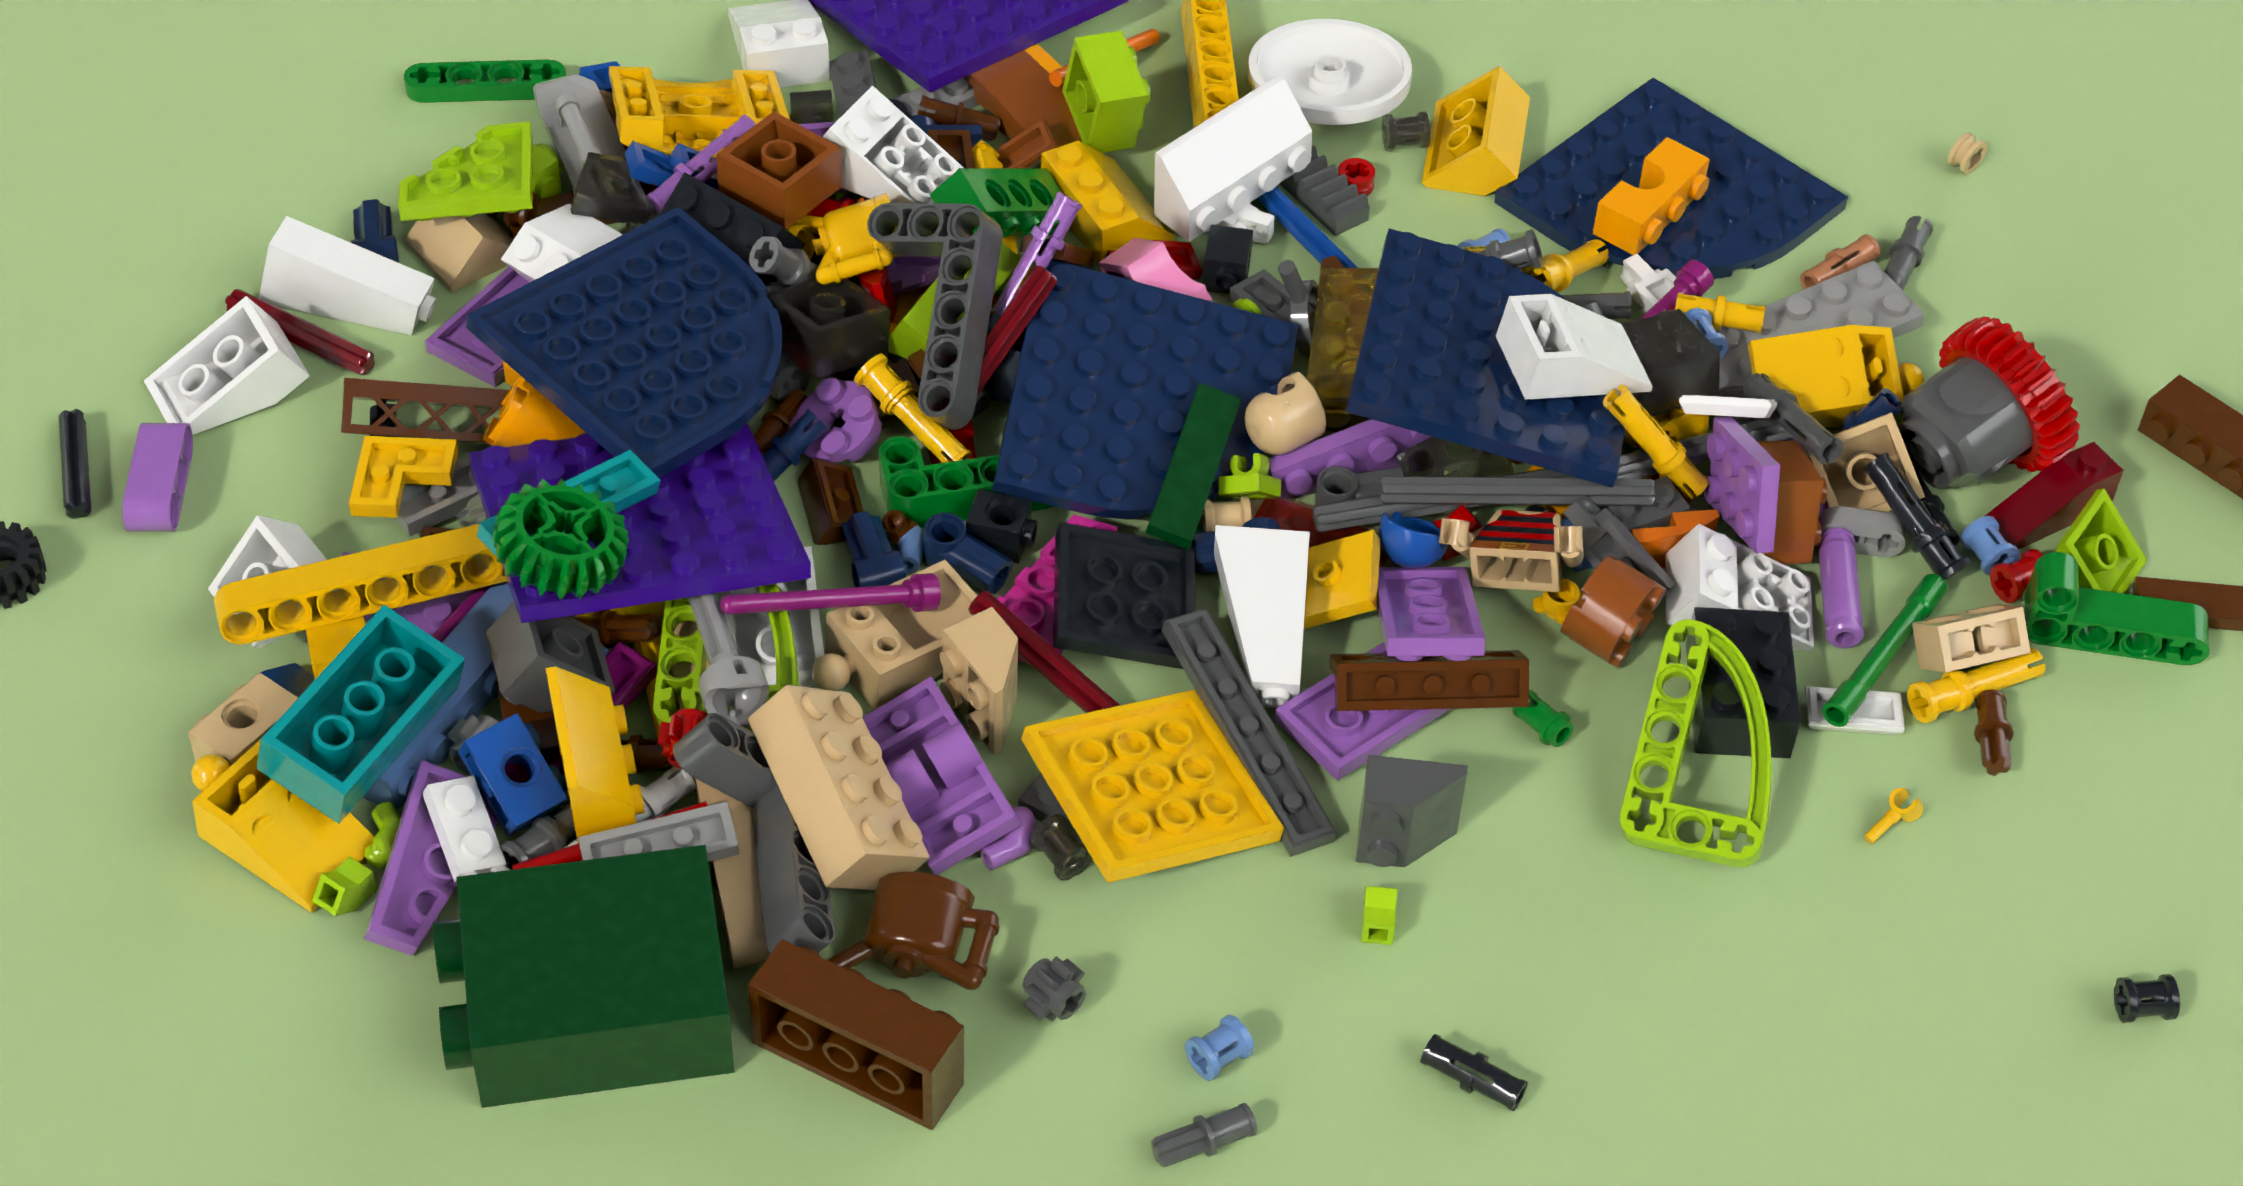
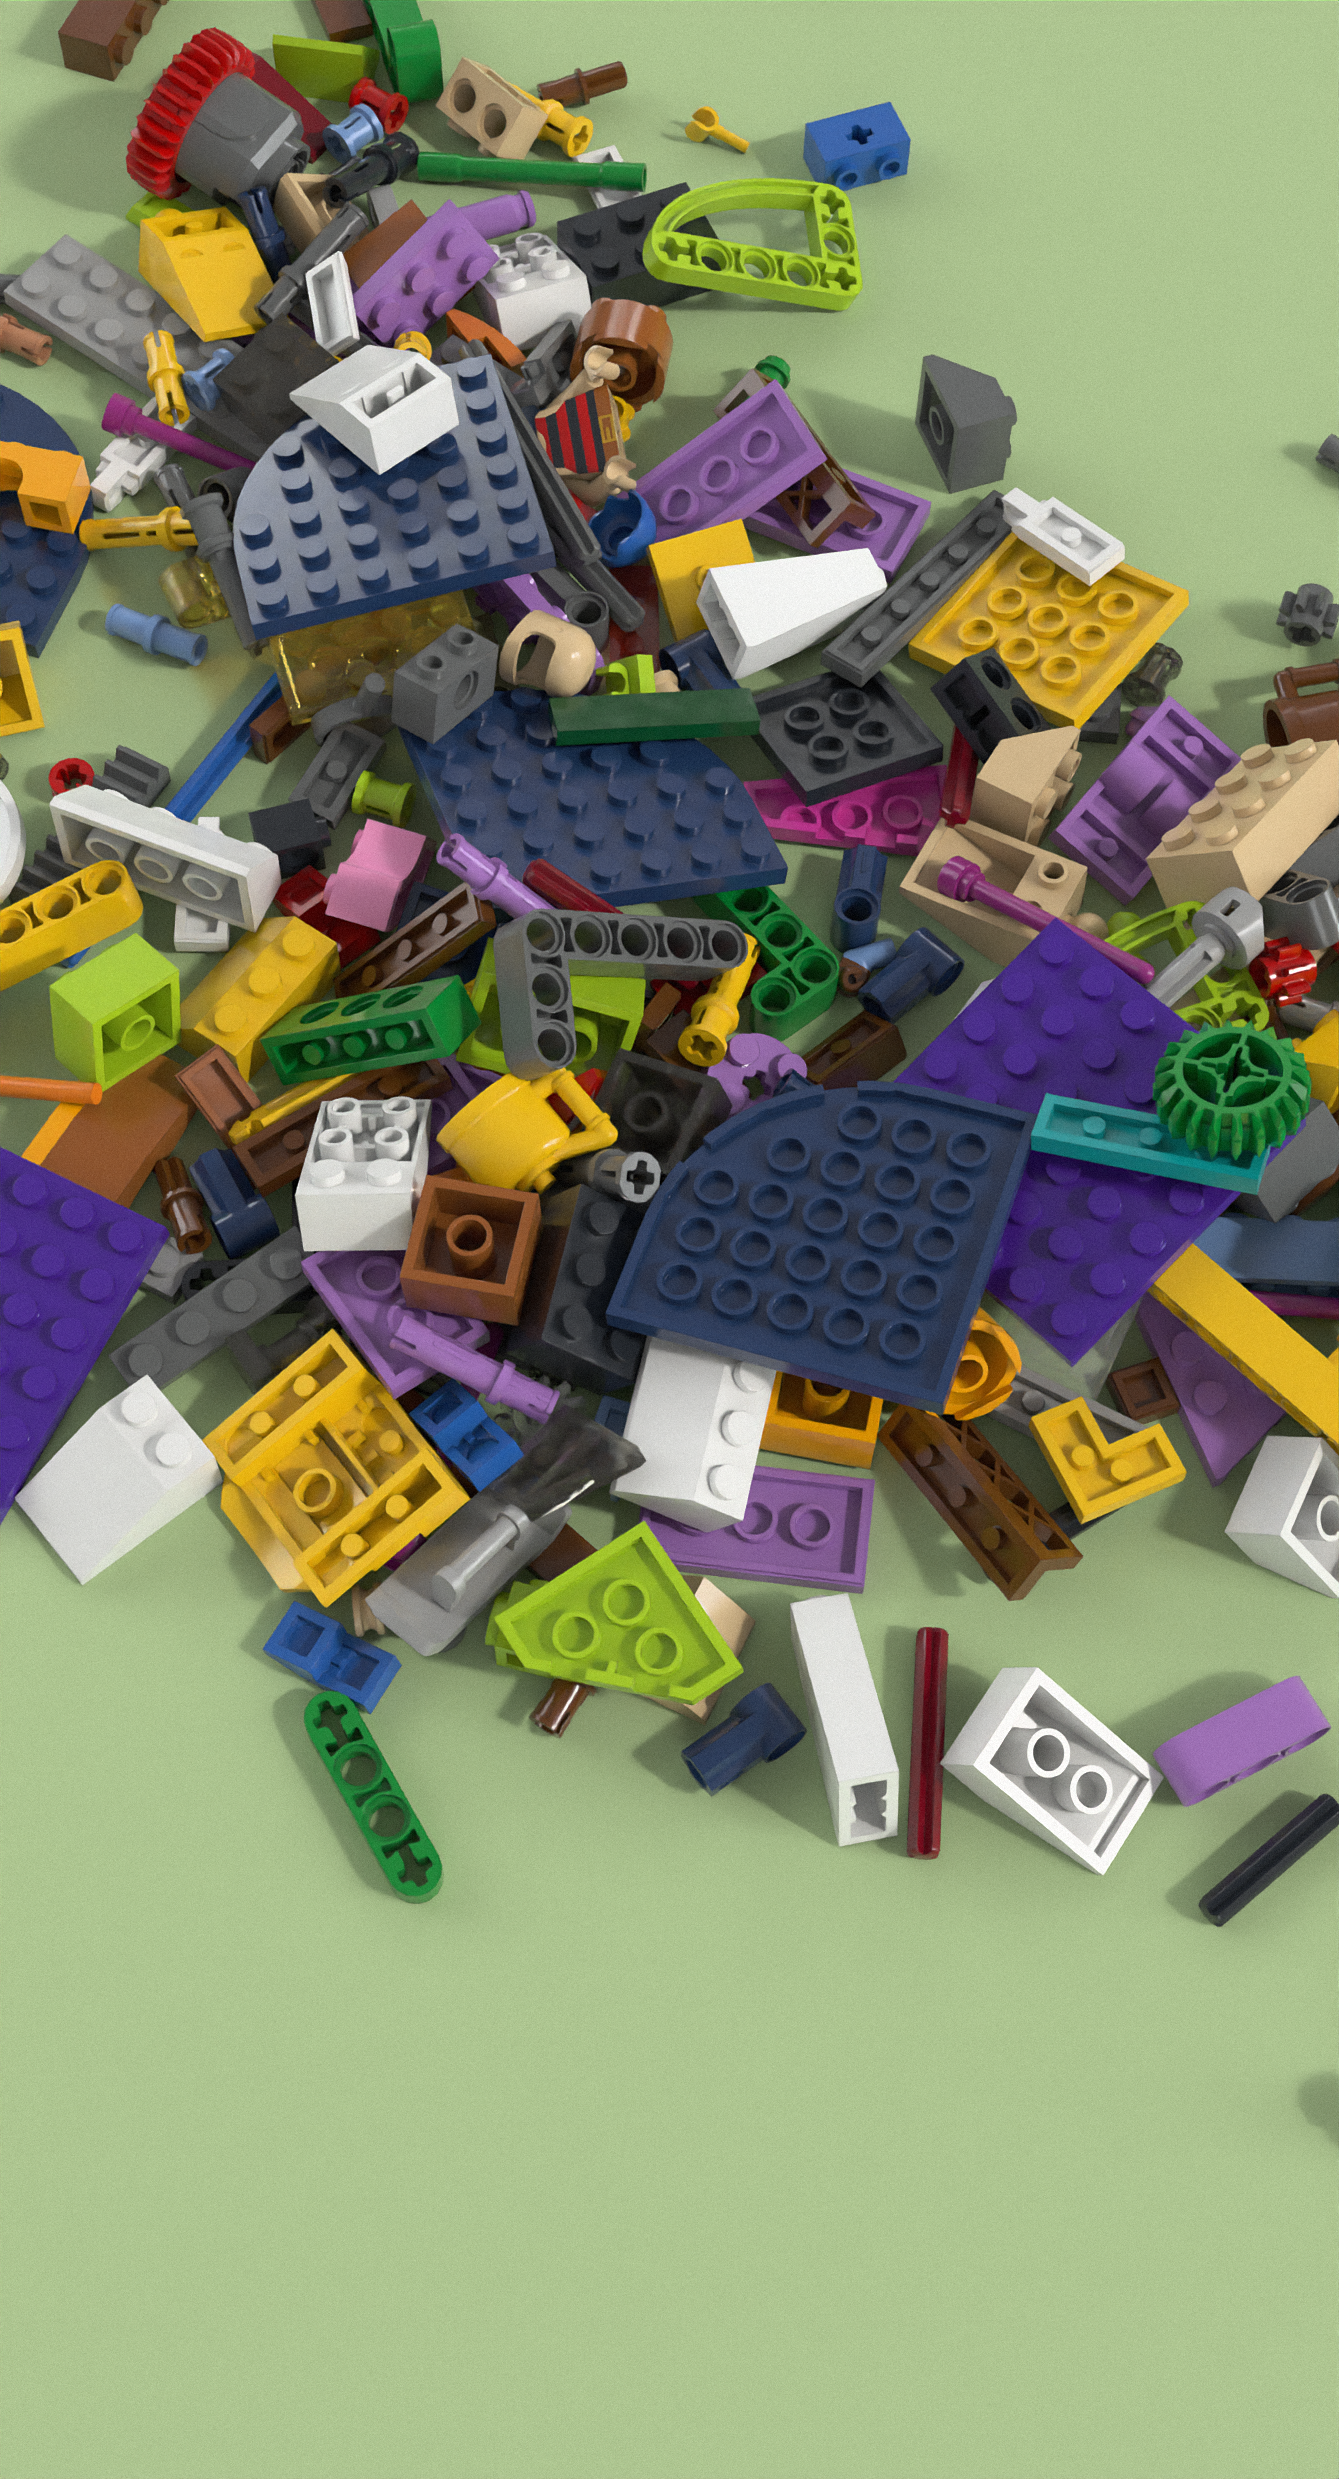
camera: 115 degrees left, 15 degrees up
(1002, 523) = (811, 900): black brick -> none
(1068, 667) = (987, 702): none -> black brick
(1219, 1047) = (1276, 486): medium blue bush -> none
(1230, 814) = (1062, 535): none -> white hinge
(1279, 327) = (444, 683): none -> dark grey brick
(1379, 915) = (1059, 430): lime piece -> none
(1442, 1057) = (1173, 321): black pin -> none
(1815, 905) = (857, 147): none -> blue brick

